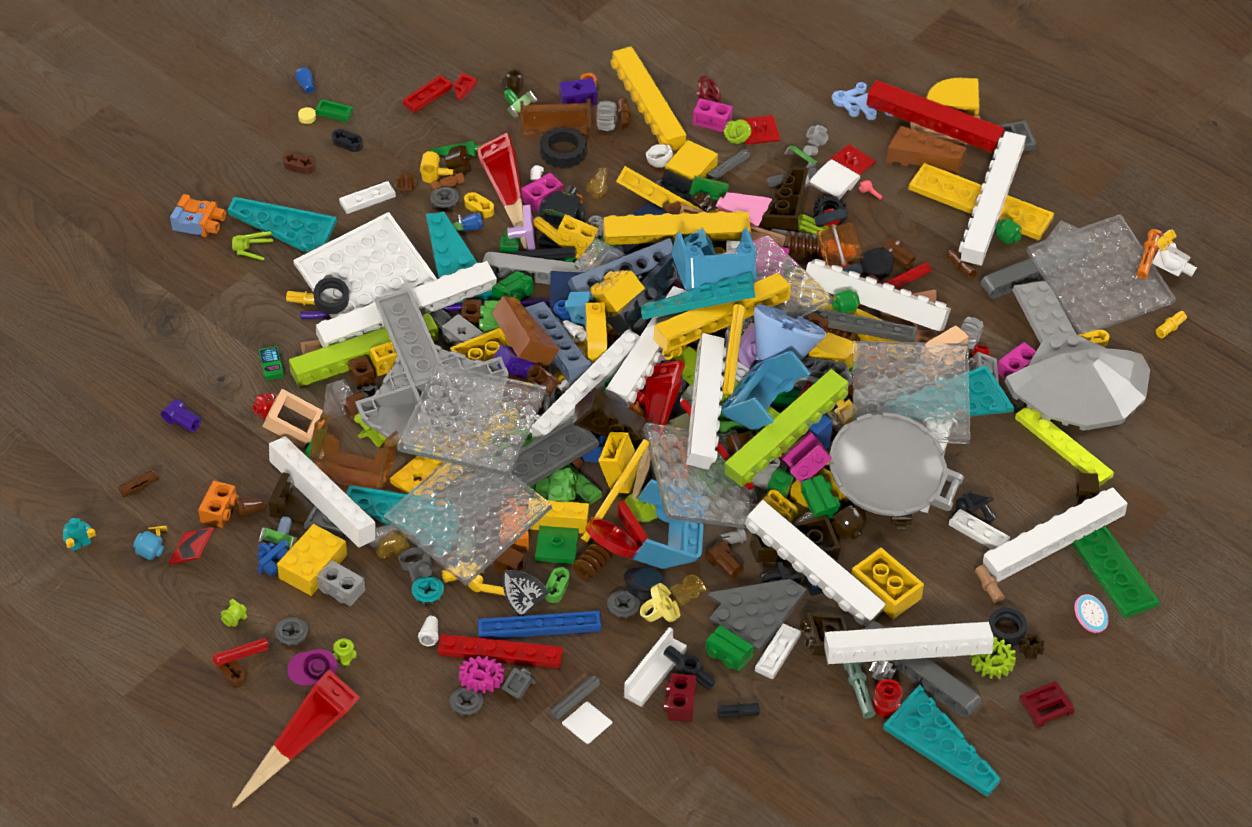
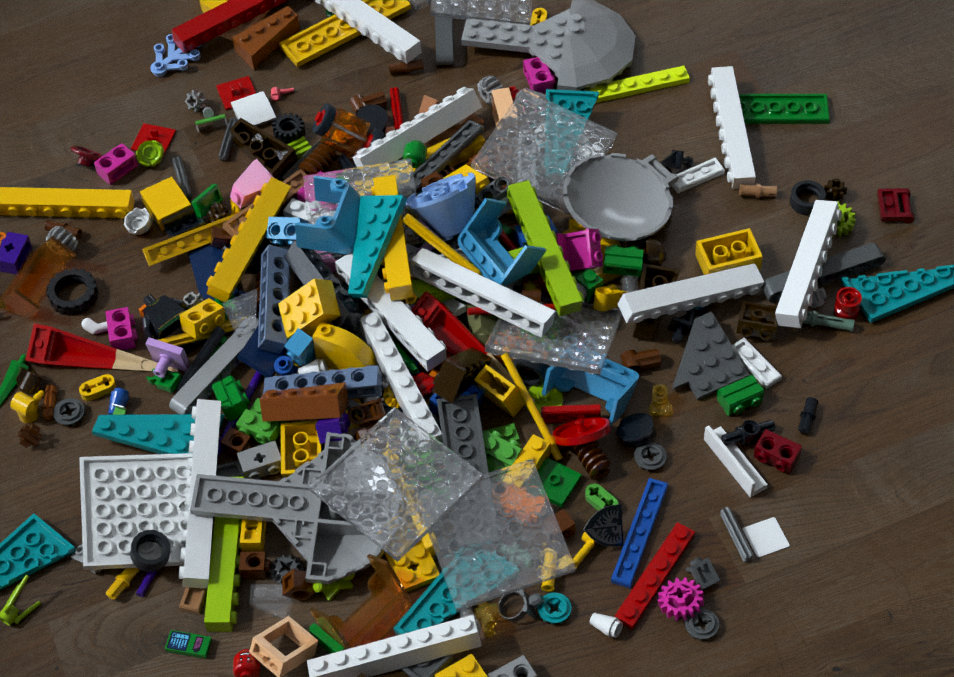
camera: 60 degrees left, 5 degrees up
(367, 197) = (20, 478): white tile -> none
(597, 185) = (139, 282): clear yellow plate -> none
(662, 605) = (672, 425): light yellow tile -> none
(734, 537) = (618, 344): light grey pin -> none
(1008, 231) = (397, 17): green head -> none
(1087, 486) = (694, 88): dark brown brick -> none
(1091, 613) = (821, 138): piece -> none

